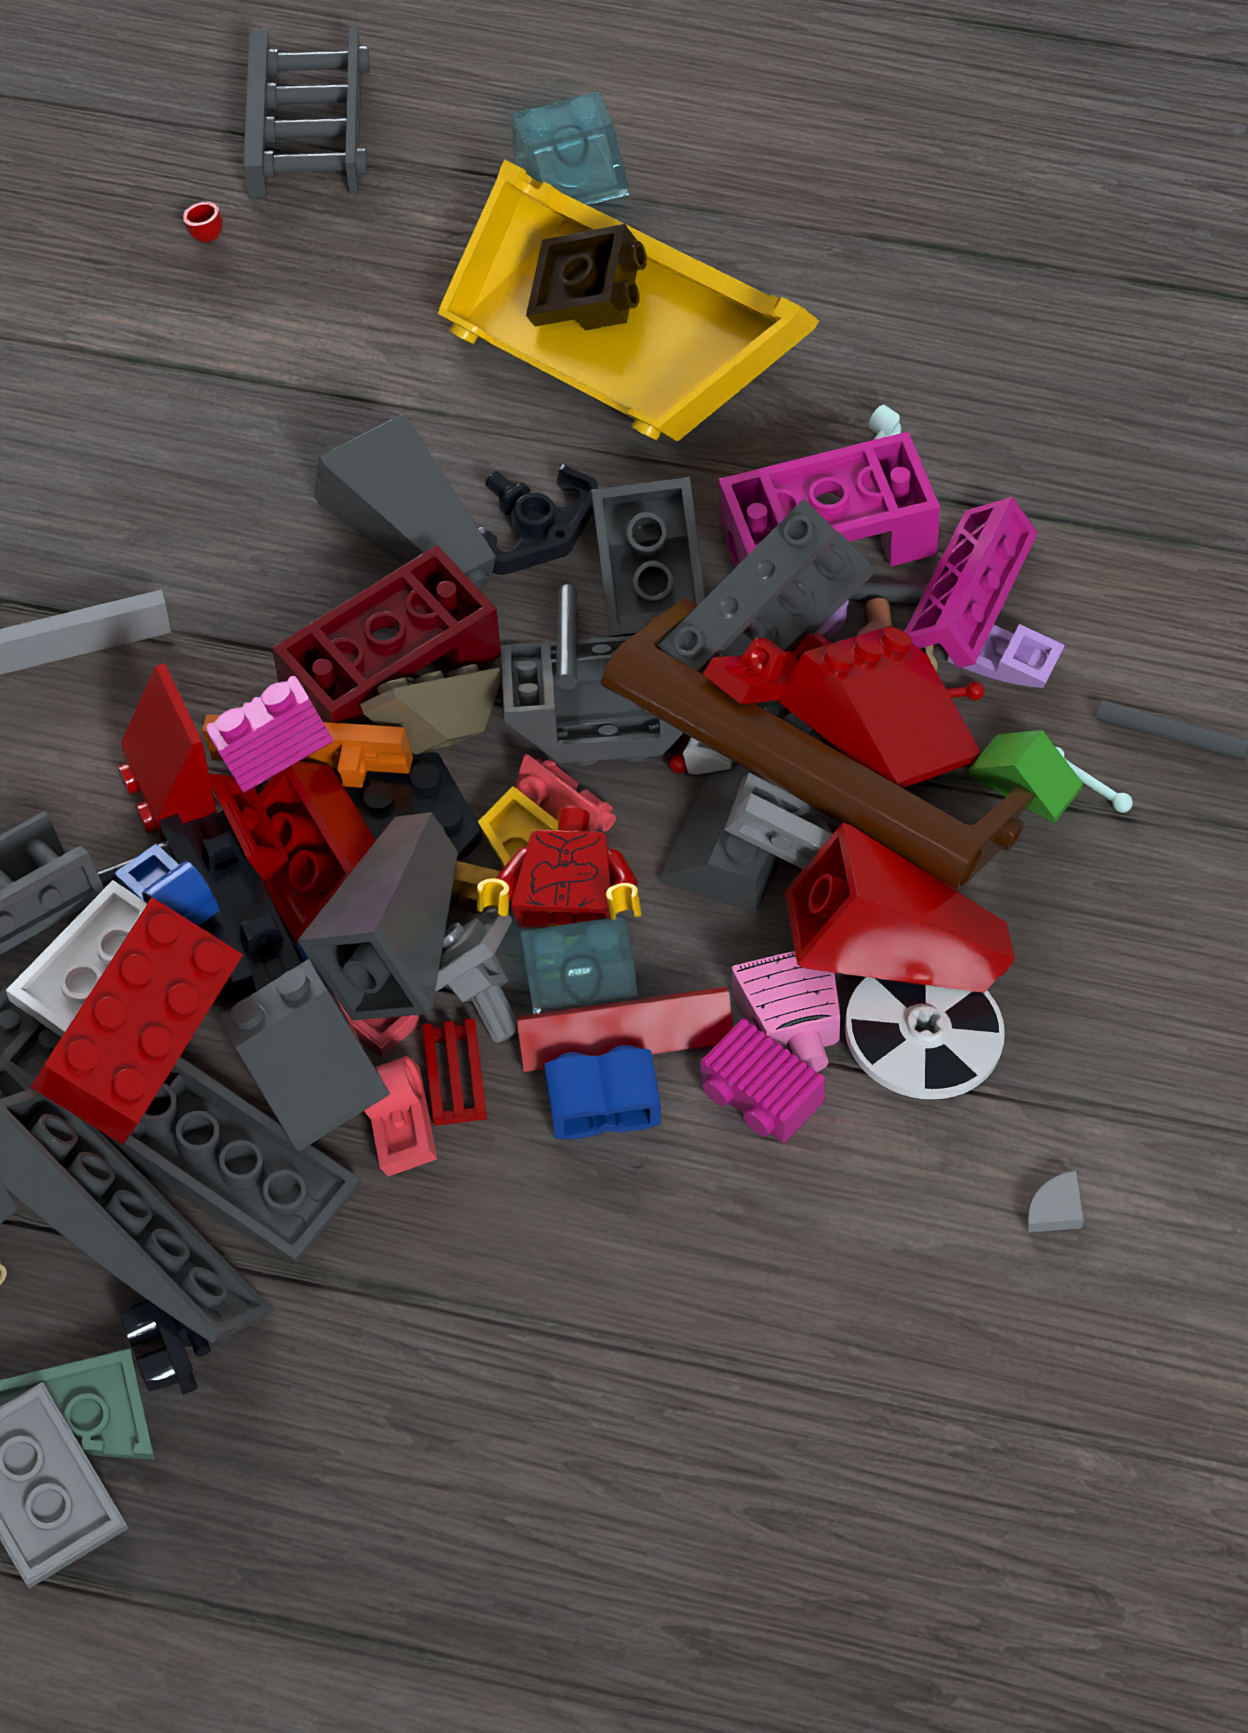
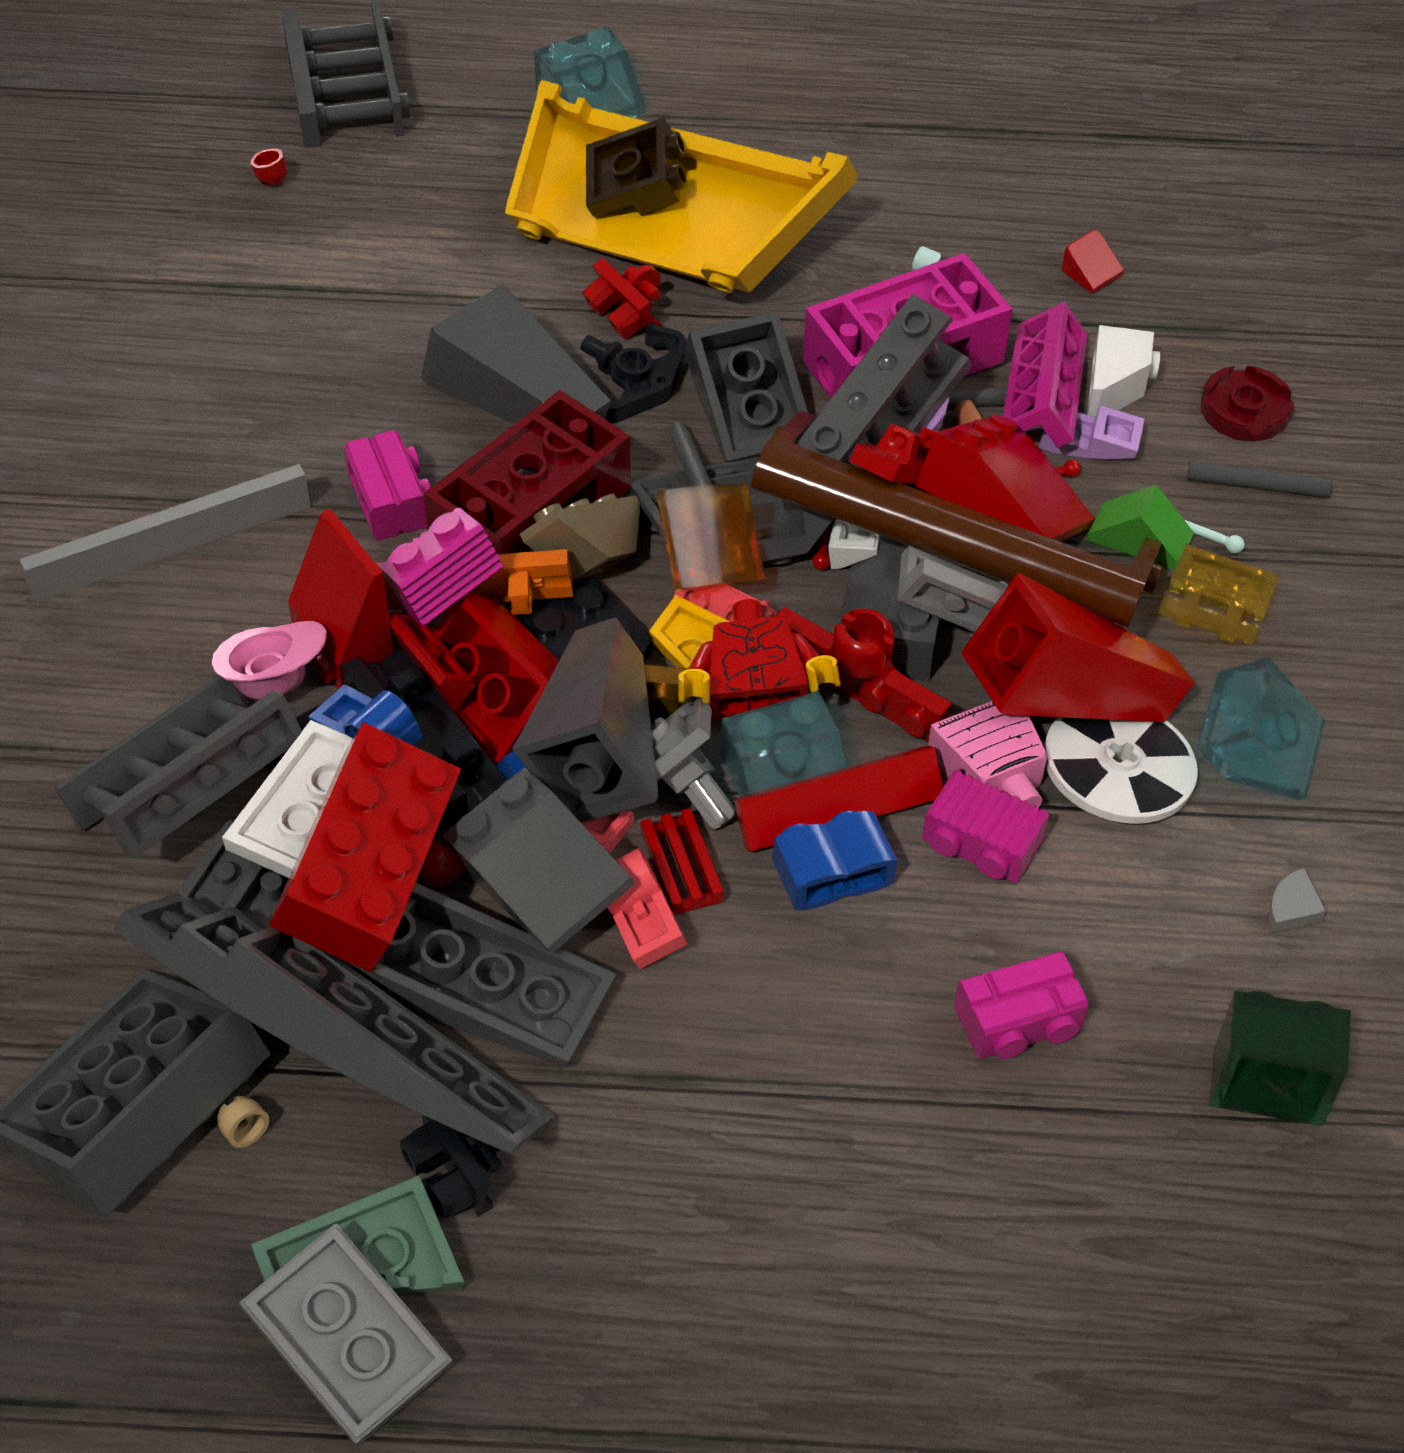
camera: 15 degrees left, 5 degrees down
(90, 802) = (269, 657): none -> bright pink piece
(215, 1044) = (441, 866): none -> red hinge
(249, 618) = (387, 484): none -> dark pink brick
(531, 416) = (629, 293): none -> red hips
(553, 732) = (710, 536): none -> clear orange slope
(679, 886) = (866, 670): none -> red plate
(745, 1271) = (1021, 1006): none -> dark pink brick
(975, 1362) = (1280, 1057): none -> clear green brick
(1056, 582) = (1121, 367): none -> white slope
(1067, 444) = (1091, 262): none -> slope
(1078, 1018) = (1261, 730): none -> clear light blue slope
(1090, 846) = (1221, 583): none -> clear yellow plate
(1189, 637) = (1247, 403): none -> dark red tile

